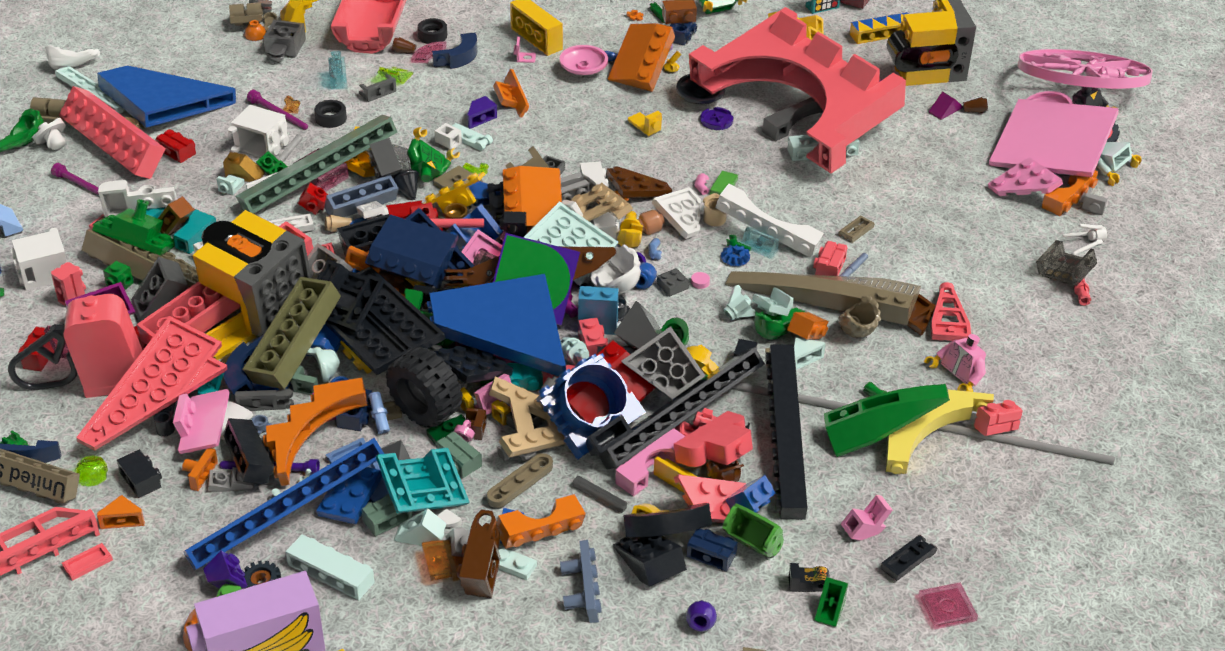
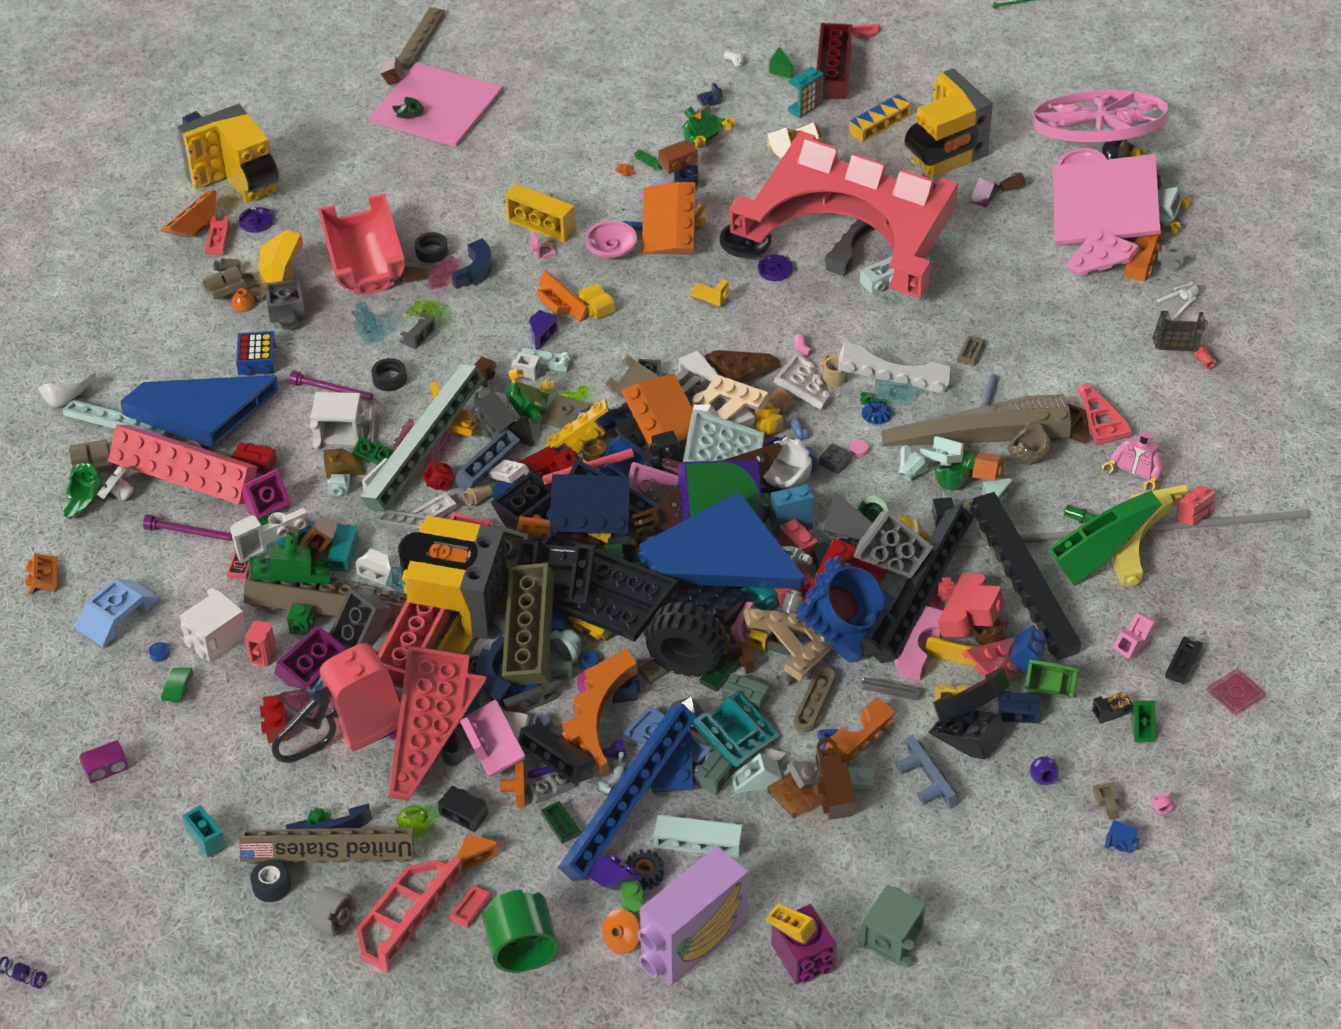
camera: 20 degrees left, 5 degrees up
(99, 595) = (520, 931): none -> green brick
(158, 170) = (265, 494): none -> dark pink slope
(216, 513) = (560, 822): none -> dark green plate
(233, 68) = (255, 353): none -> panel
(292, 105) = (343, 376): clear orange piece -> none
(379, 412) = (649, 677): light blue pin -> none
(405, 130) = (487, 368): none -> reddish brown brick
(465, 431) = (738, 668): bright pink tile -> none
(541, 104) = (597, 301): none -> yellow brick
(722, 181) = (822, 339): bright green tile -> none
(830, 259) = (967, 391): coral brick -> none

